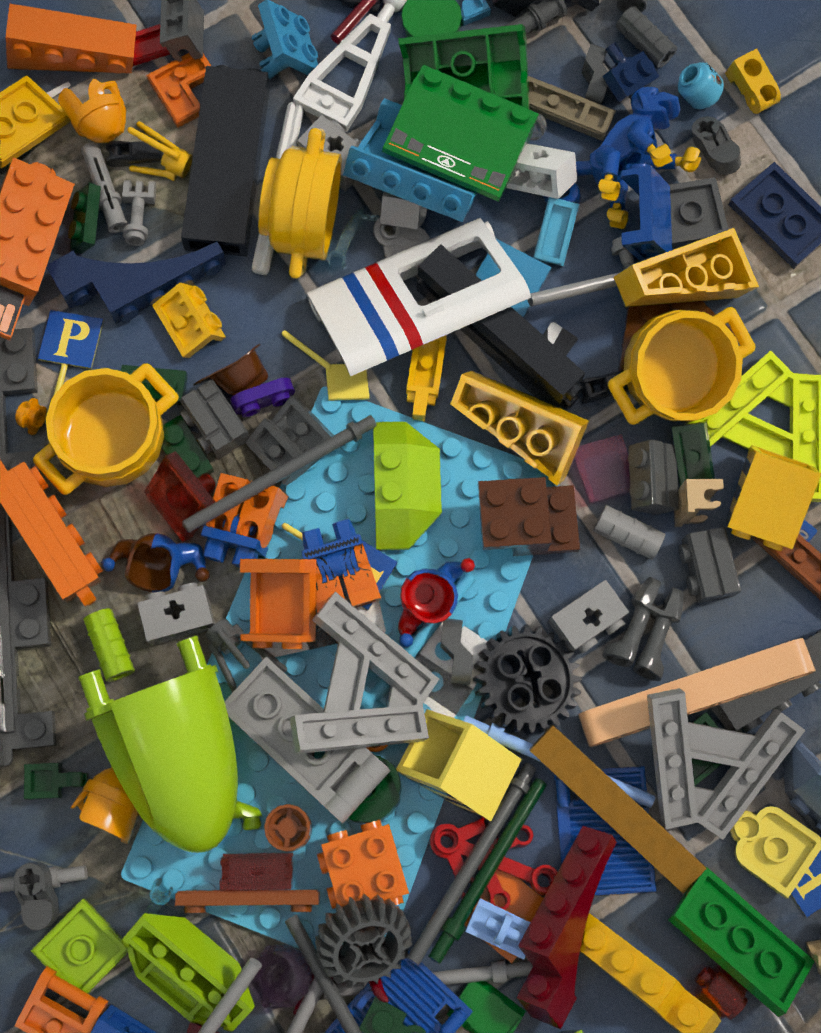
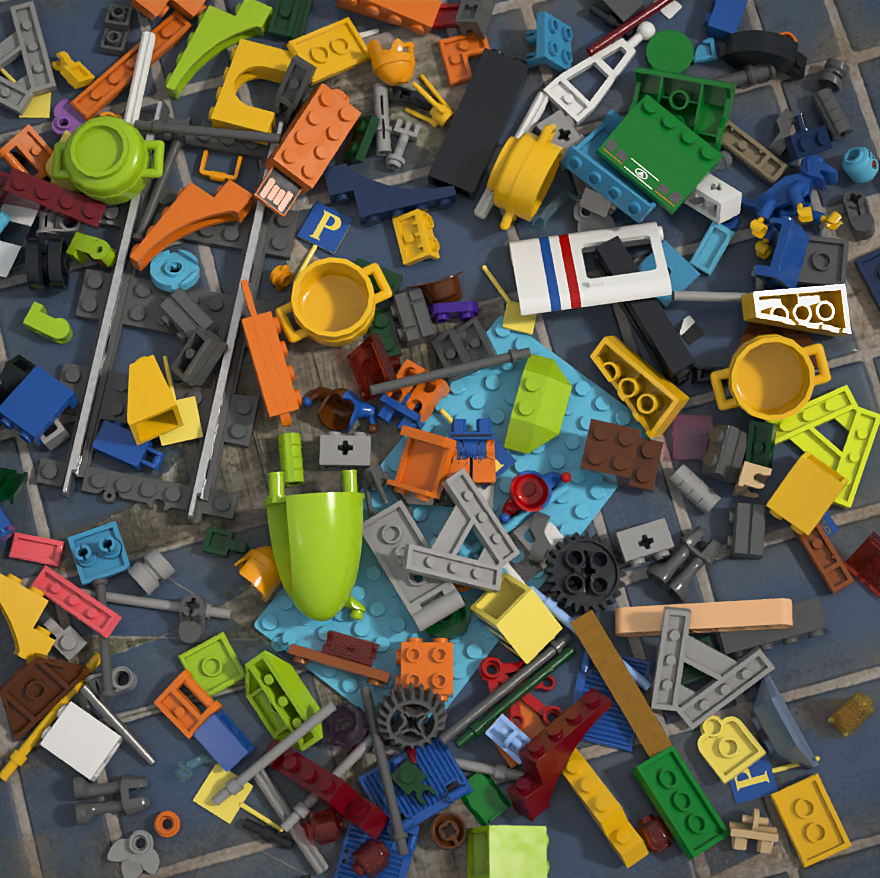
camera: 25 degrees right, 0 degrees up
(288, 828) = (381, 624): dark orange wheel -> none
(425, 376) = (579, 330): yellow hinge -> none

